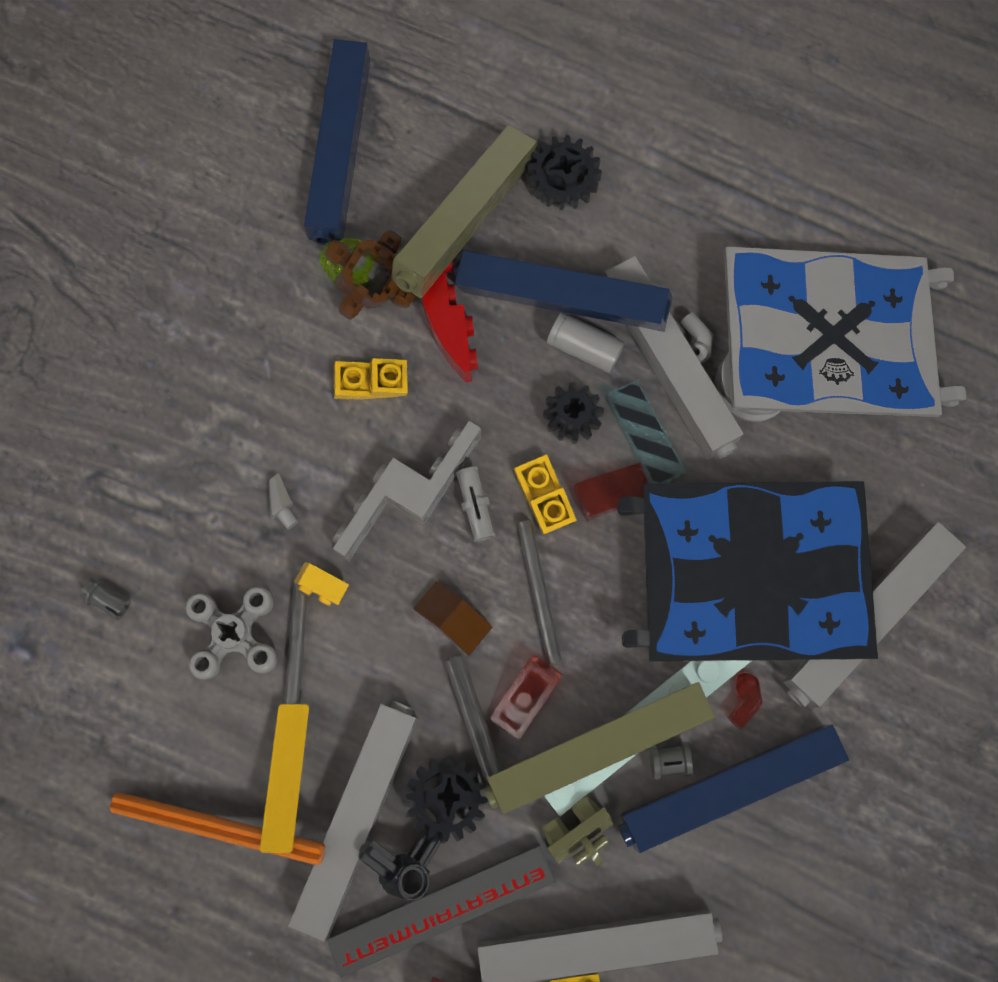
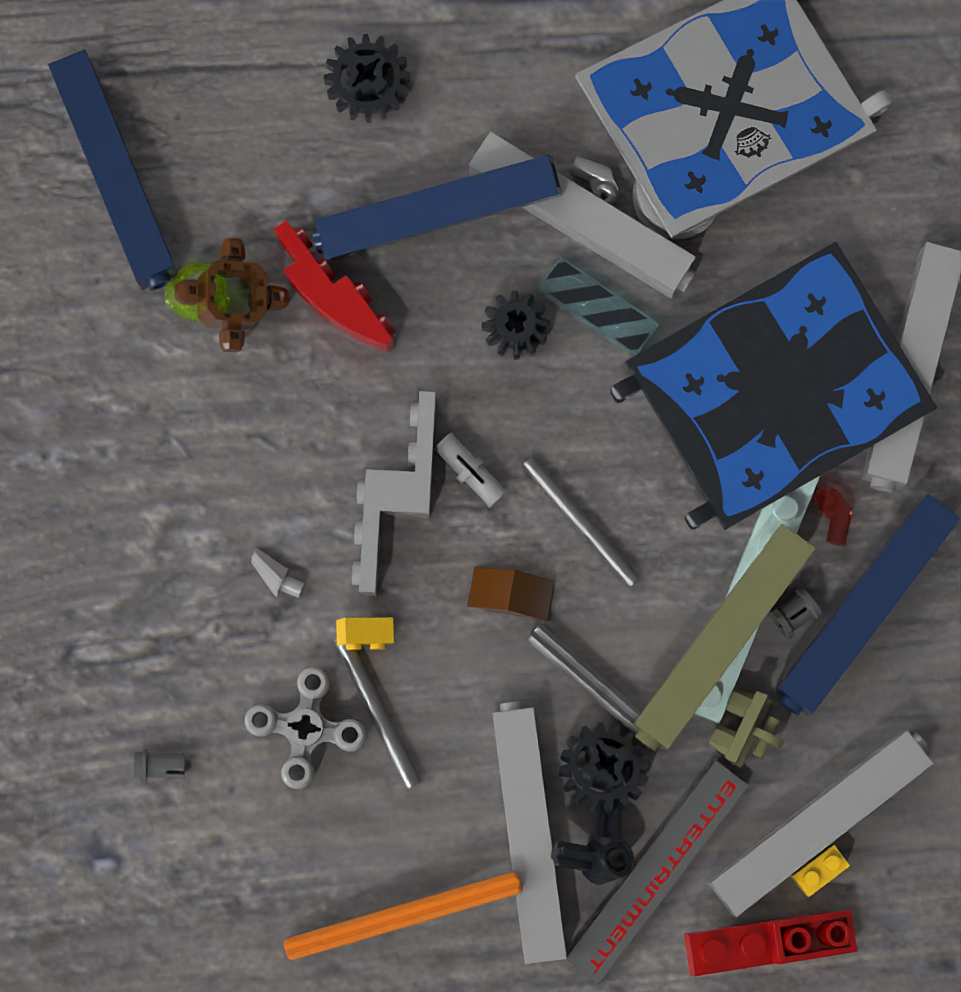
camera: 30 degrees left, 5 degrees up
(284, 779) = (441, 832): yellow sticker -> none
(370, 380) = (292, 401): yellow slope -> none
(462, 212) = (292, 178): olive brick -> none
(526, 696) = (624, 629): clear red slope -> none
(544, 494) = (532, 422): yellow slope -> none
(585, 342) = (488, 246): light grey pin -> none
(603, 492) = (592, 384): clear red slope -> none

